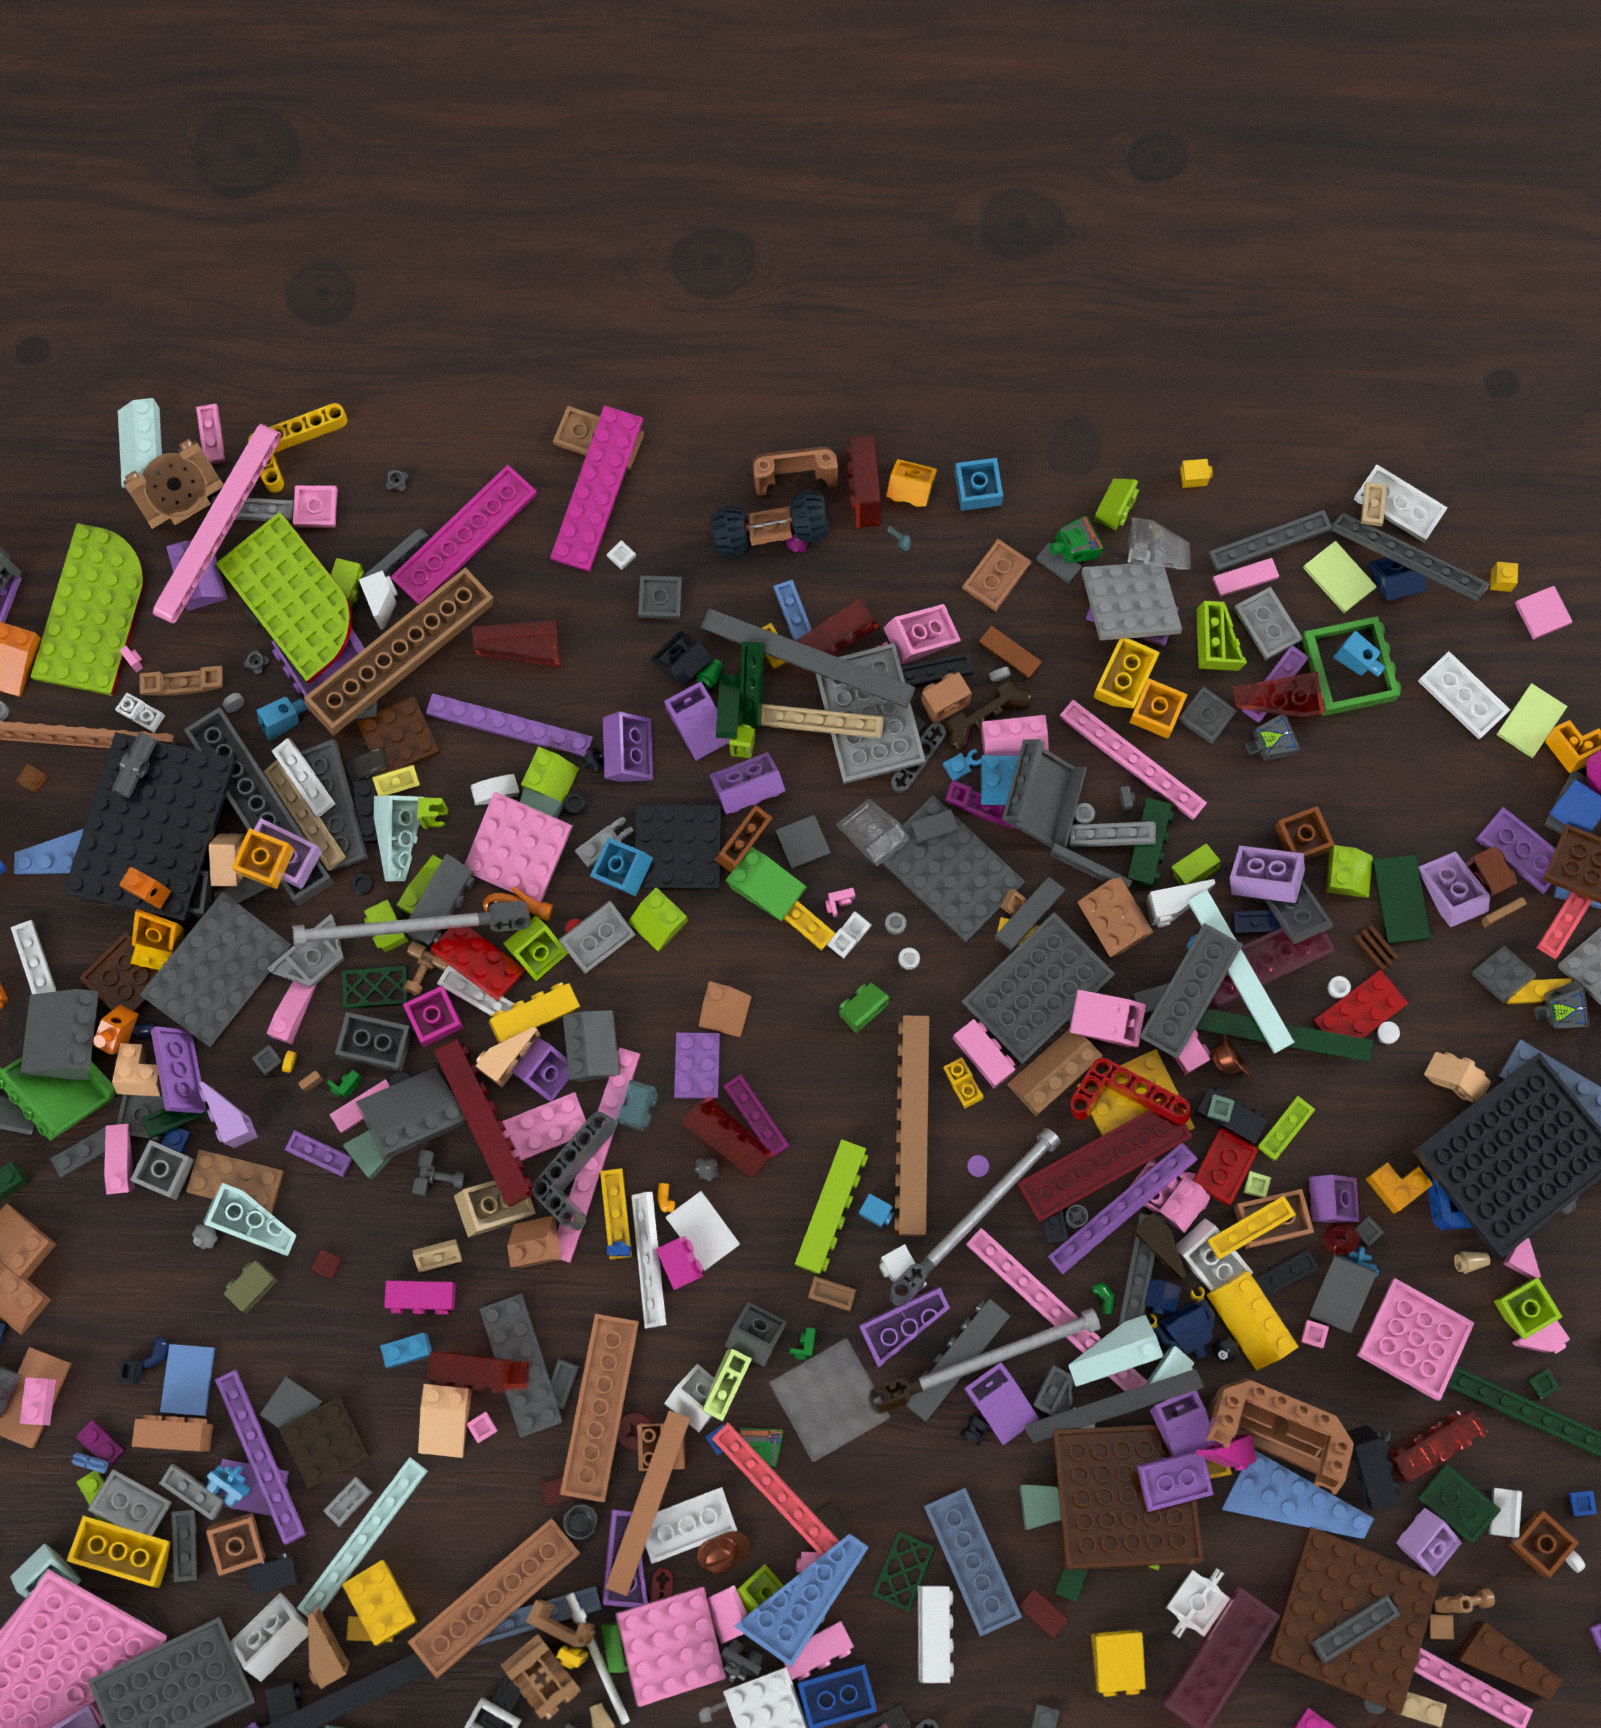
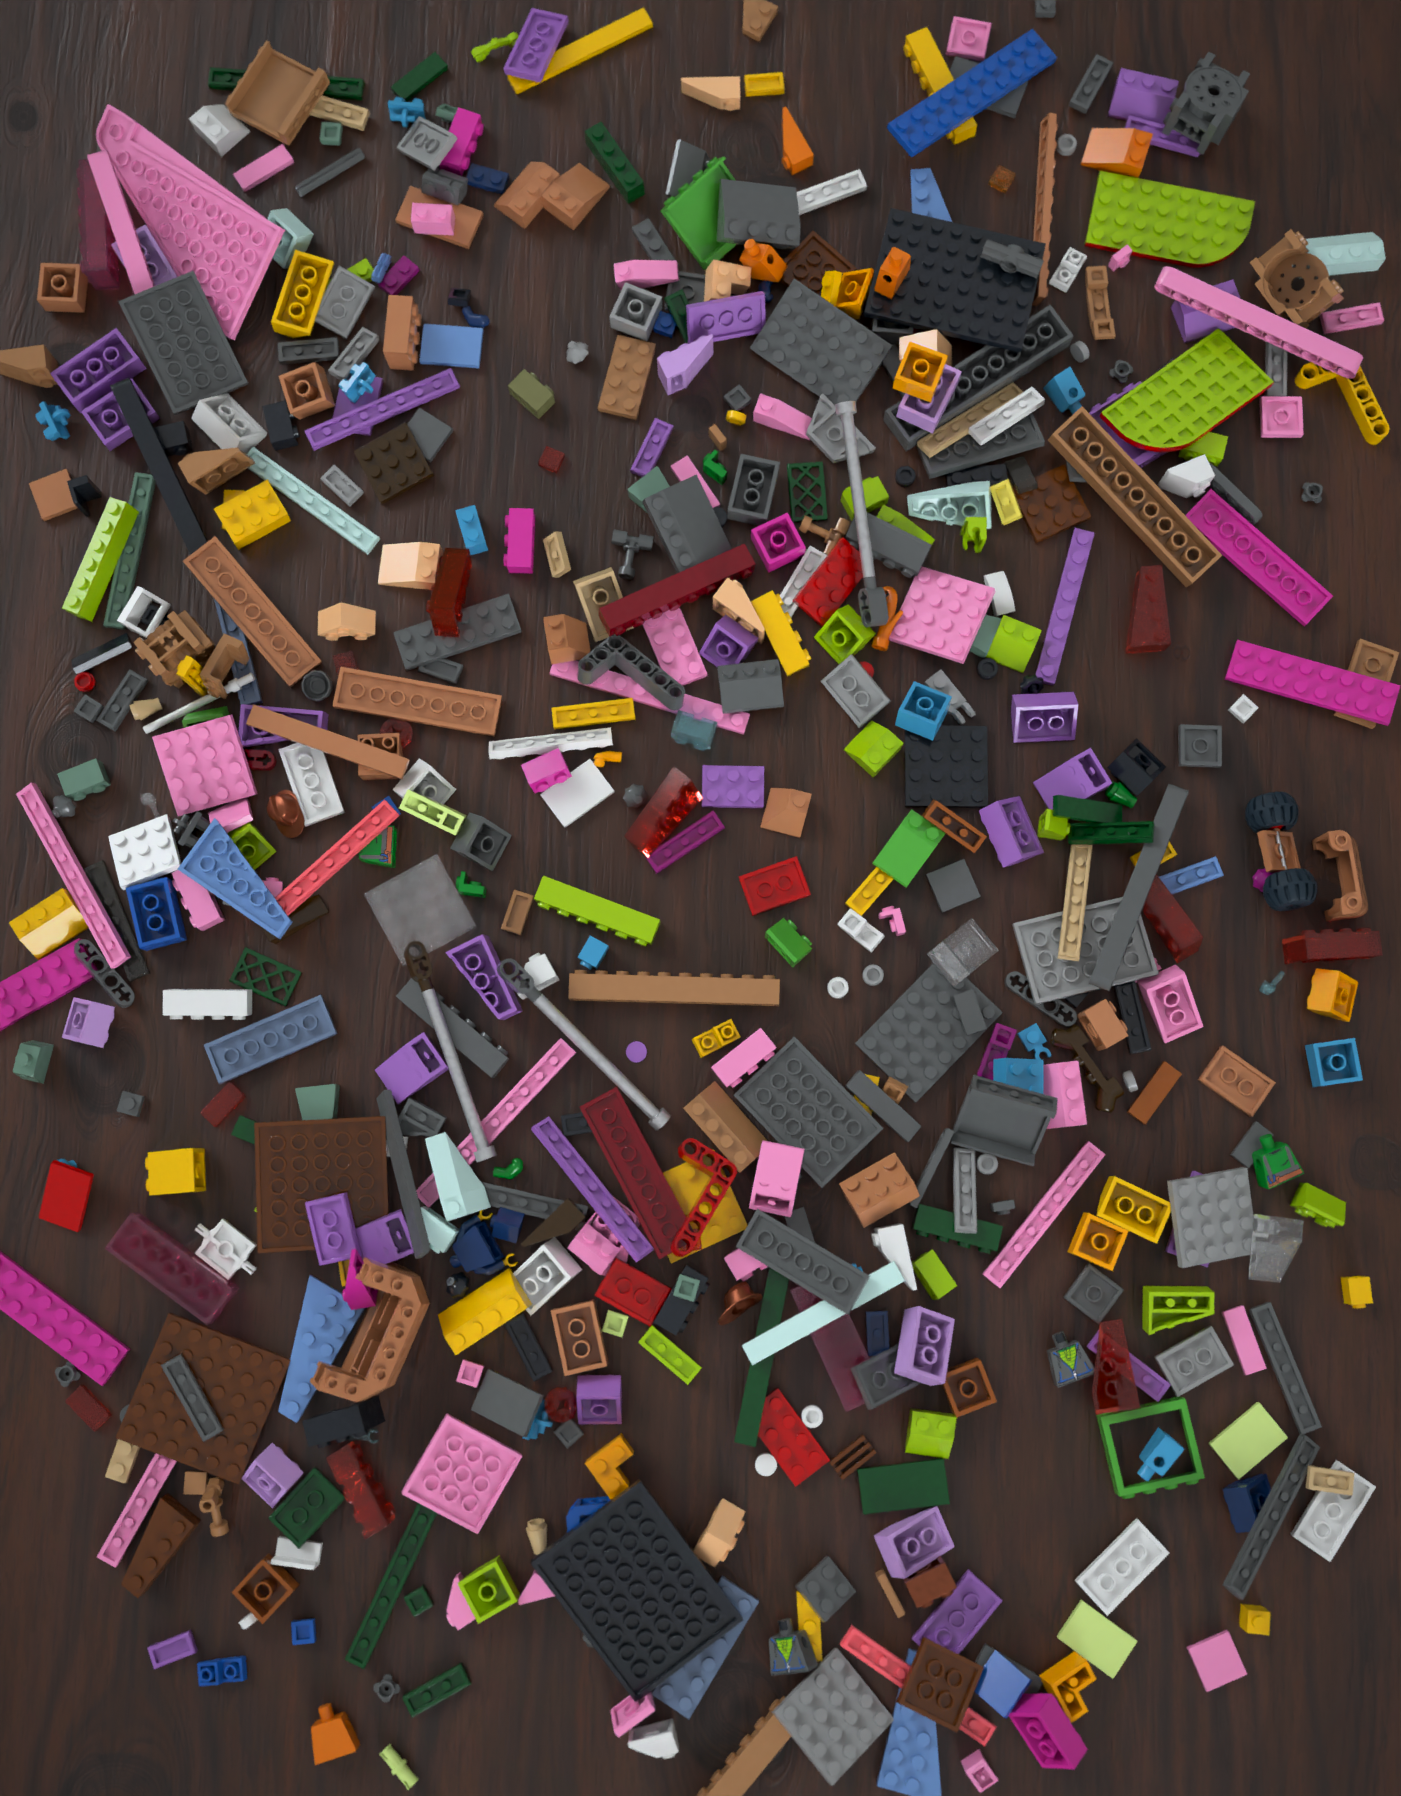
camera: 90 degrees right, 5 degrees up
(243, 1217) = (592, 382): light aqua wedge -> none
(482, 1427) = (403, 599): bright pink plate -> none
(509, 1490) = (345, 621): none -> light nougat brick
(618, 1249) = (558, 714): blue plate -> none
(803, 1022) = (774, 886): none -> red tile
(969, 1432) = (387, 1042): black wheel -> none
(1076, 1212) = (583, 1146): dark grey wheel -> none
(1251, 1227) = (568, 1312): yellow plate -> none

